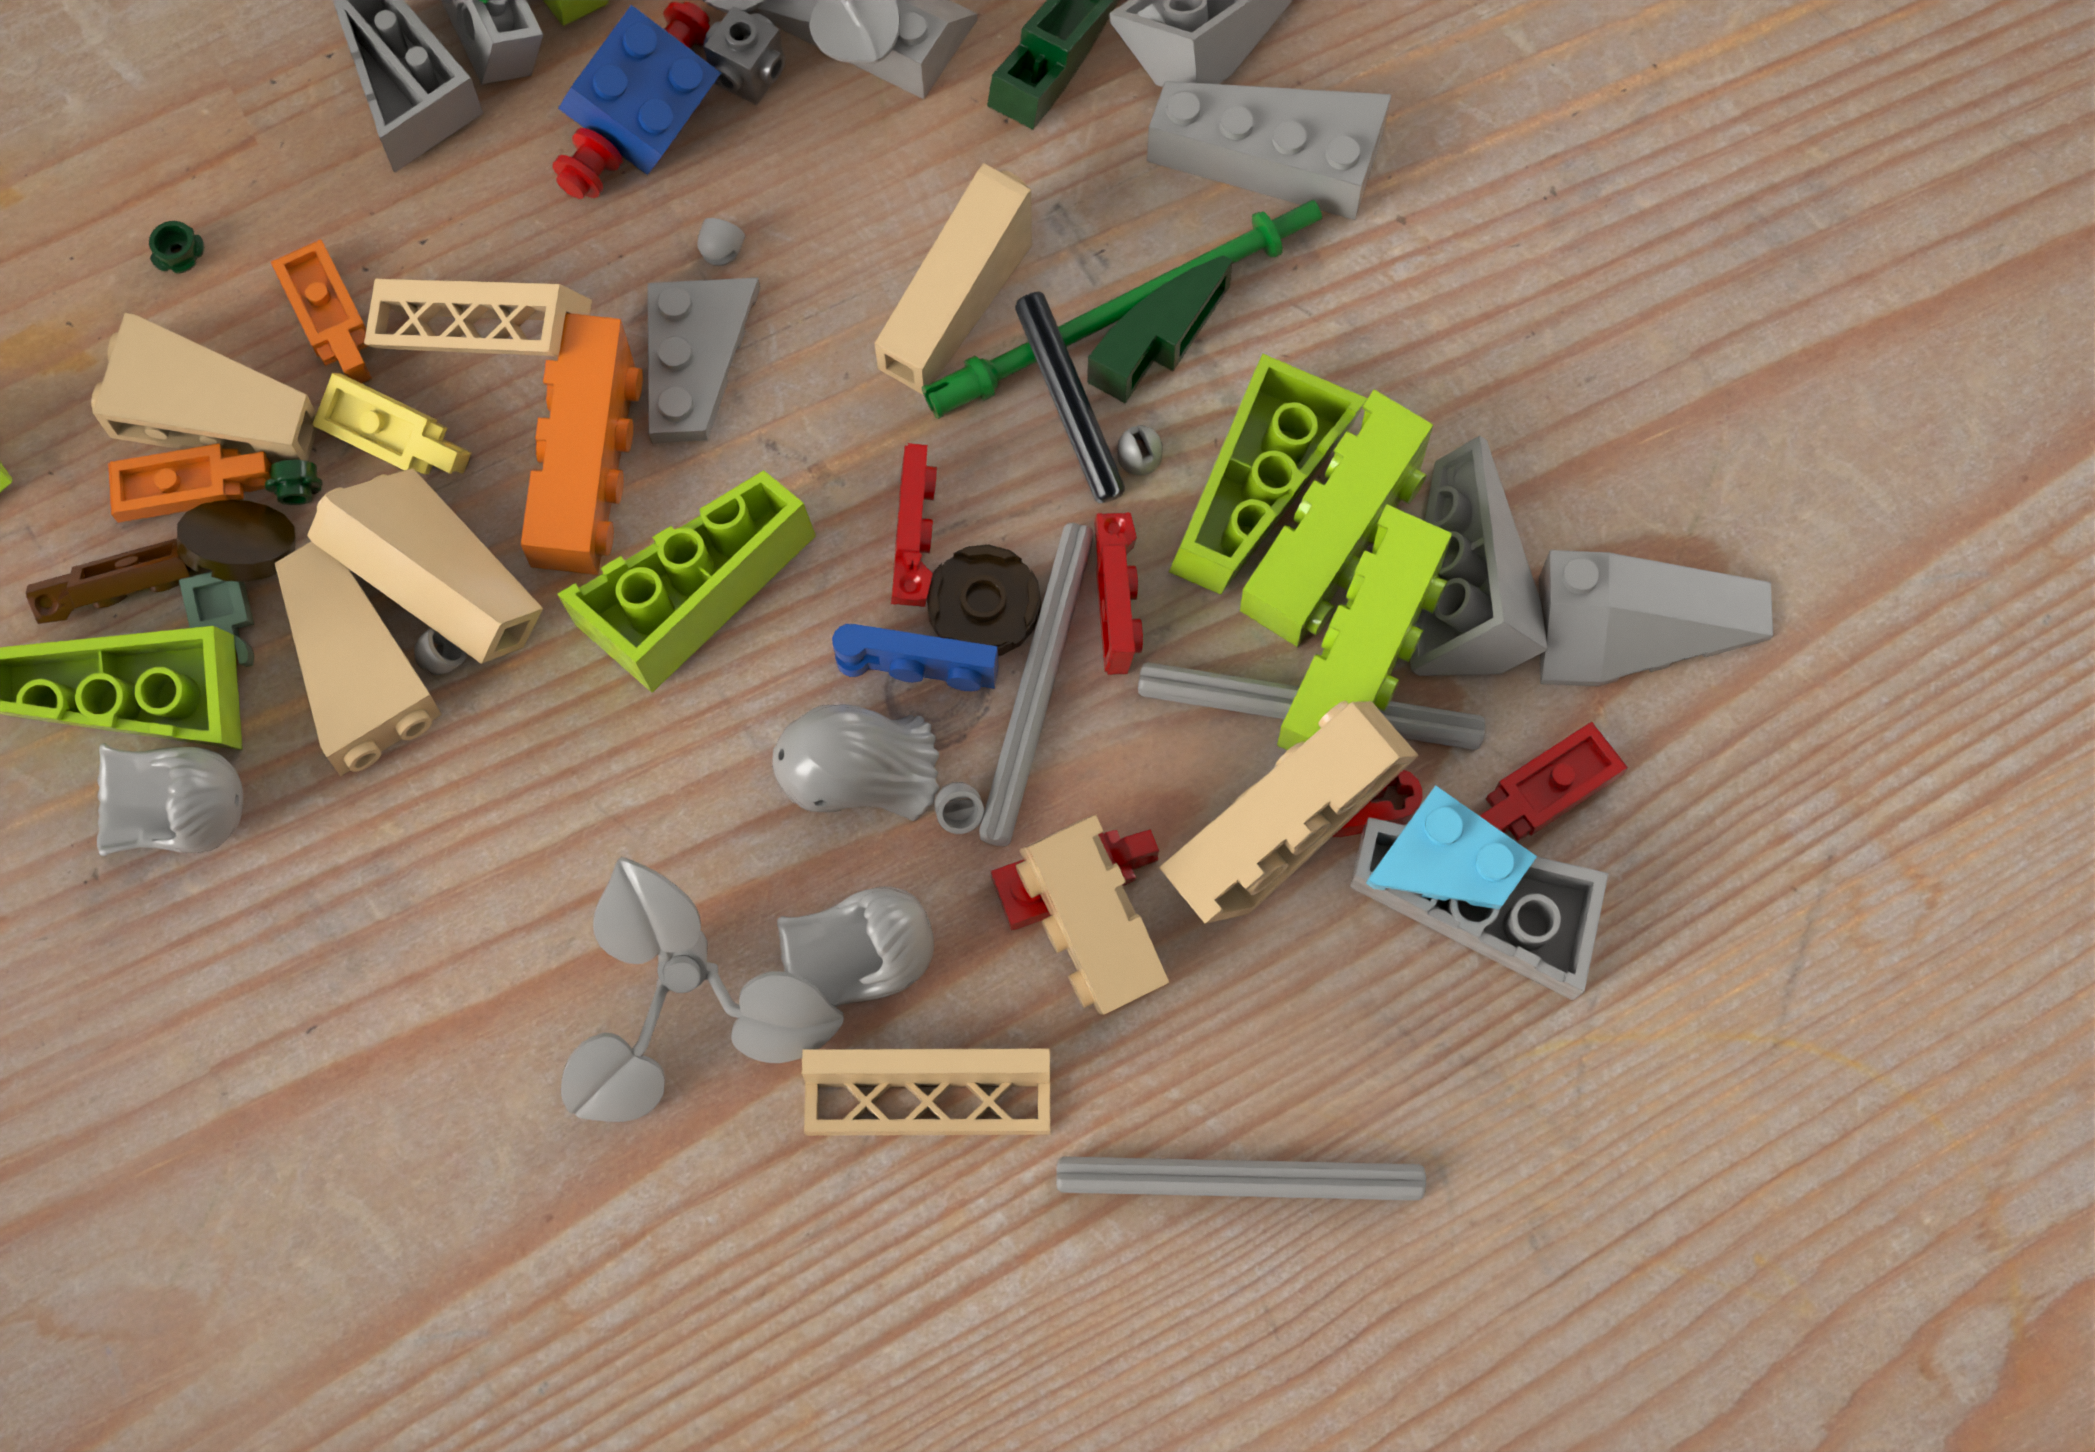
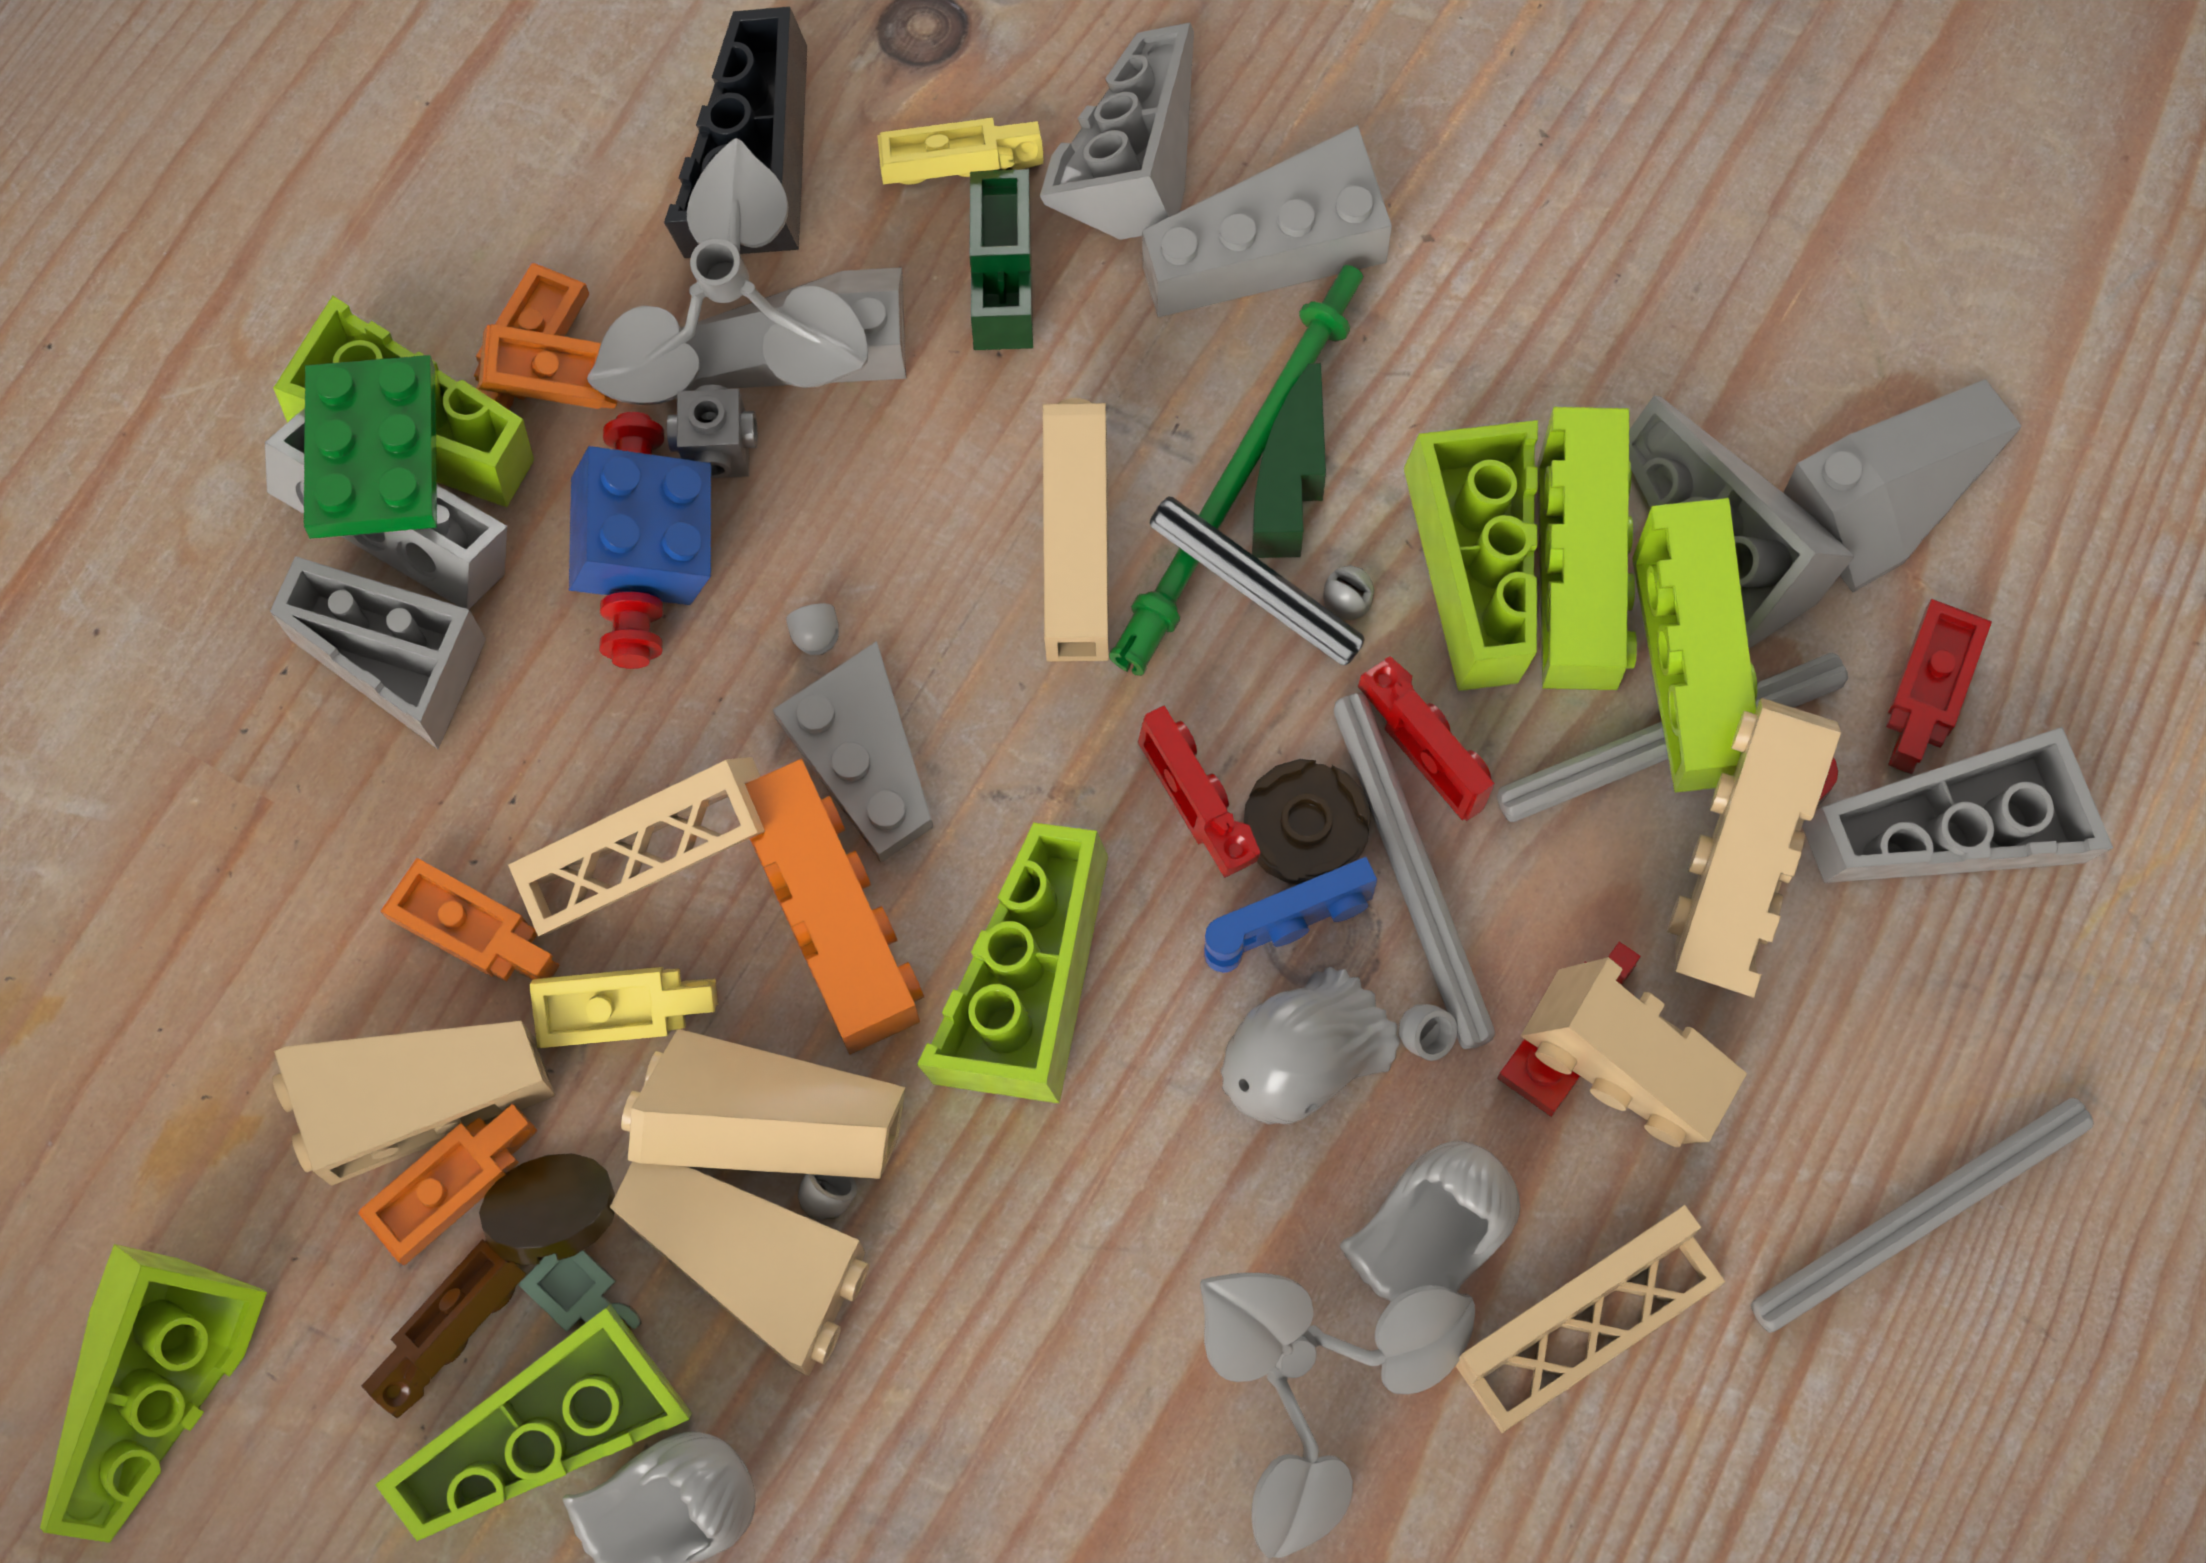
camera: 30 degrees left, 0 degrees up
(169, 237) = (253, 947): dark green plate -> none
(293, 481) = (559, 1115): dark green plate -> none
(1452, 856) = (1922, 795): medium azure wing -> none

